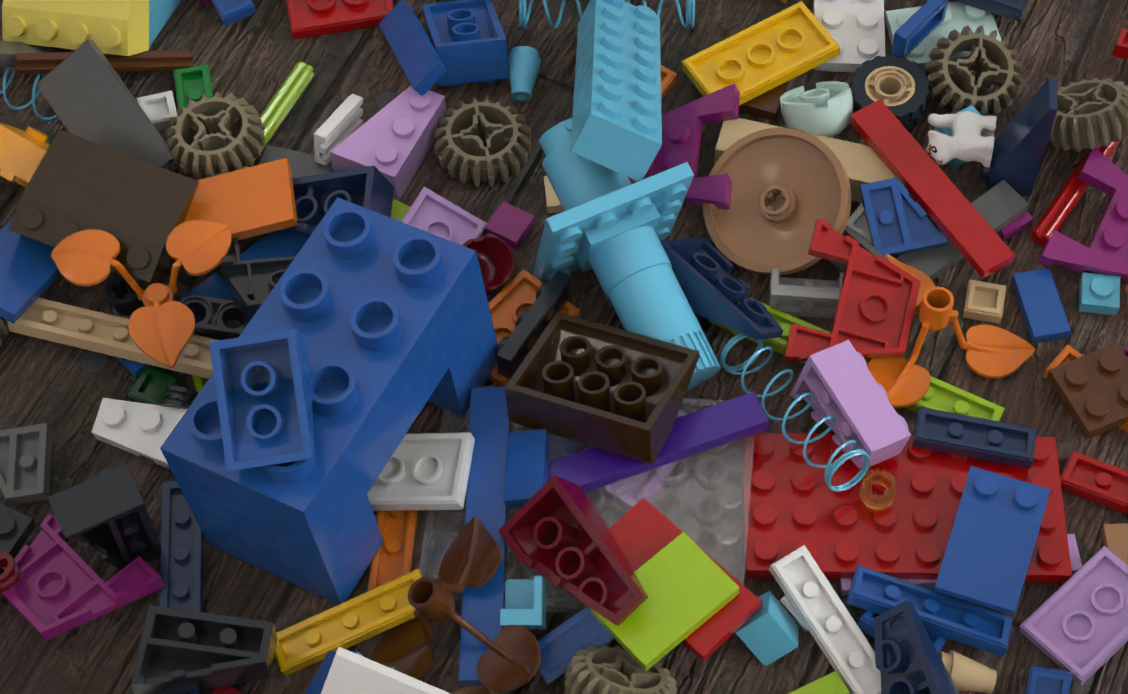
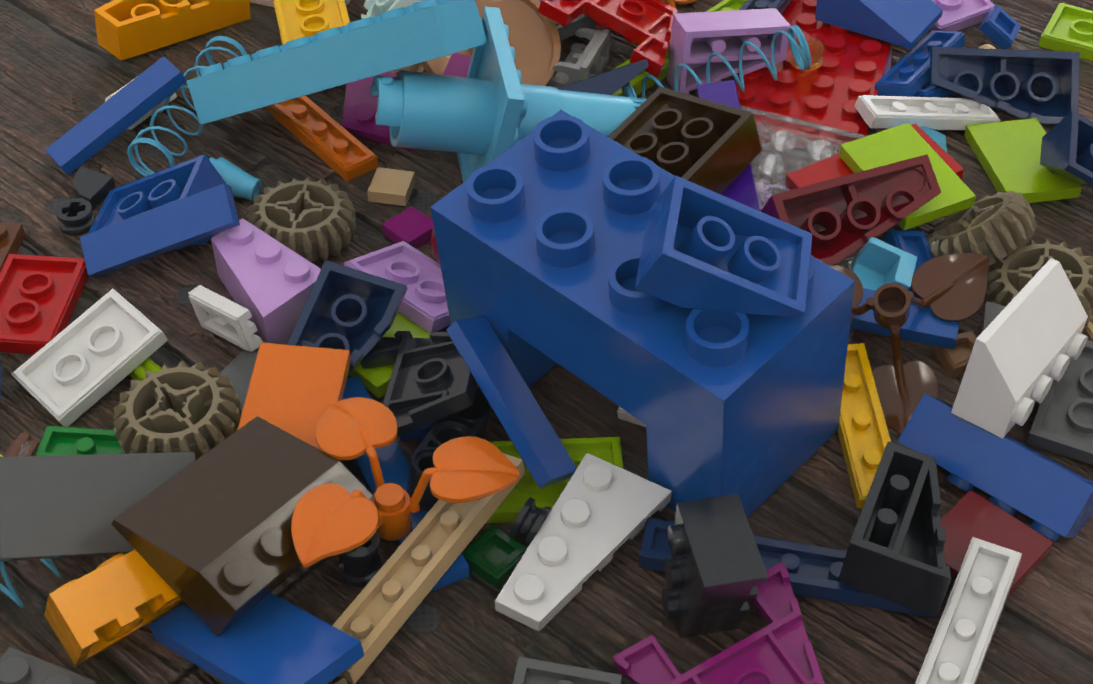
camera: 75 degrees left, 15 degrees down
(278, 60) = (89, 357): none -> white tile

